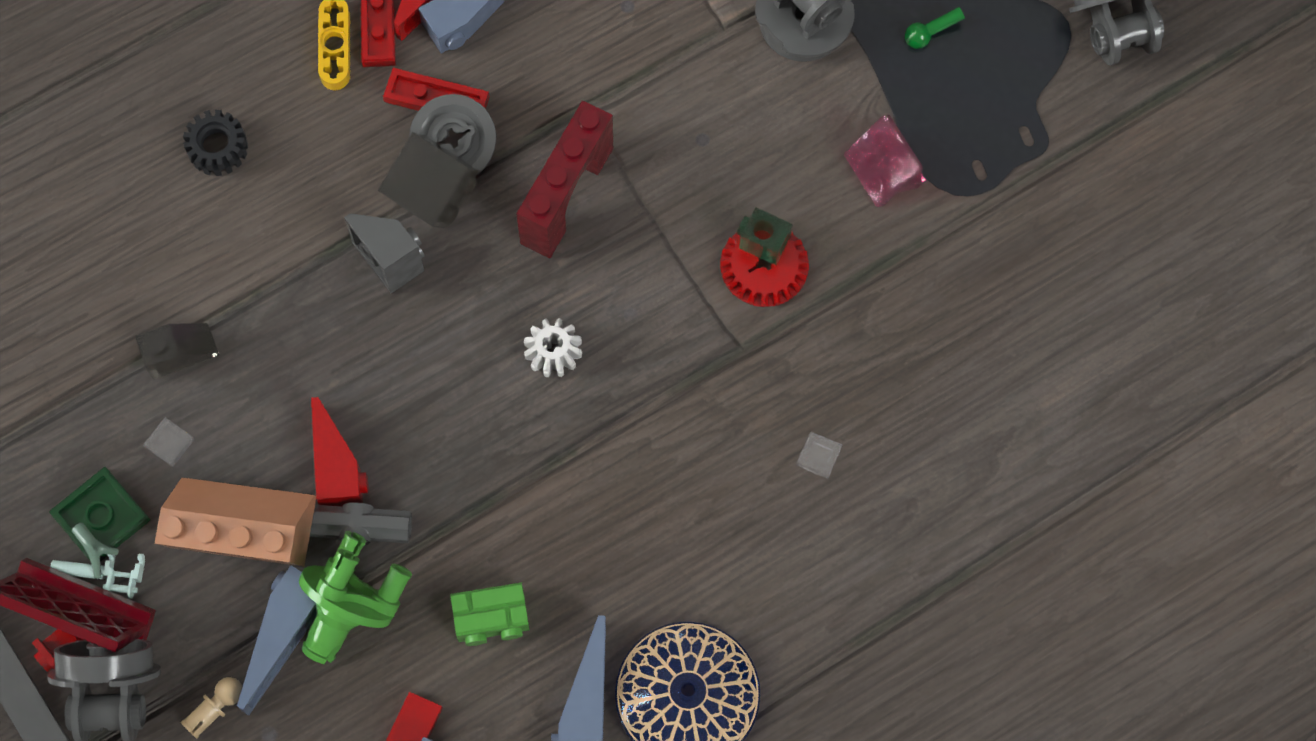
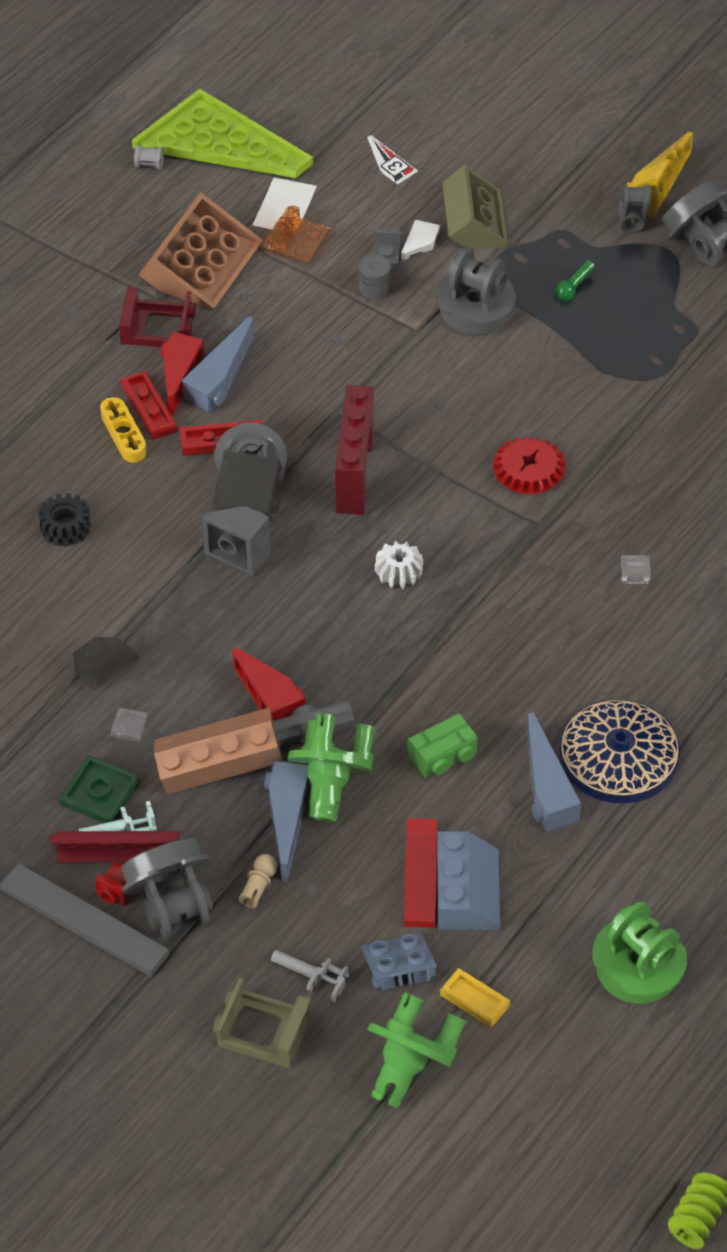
camera: 20 degrees left, 20 degrees down
(93, 547) = (109, 805): sand green bar -> none
(766, 249) = (522, 439): clear green brick -> none
(884, 162) = (585, 368): clear pink bracket -> none

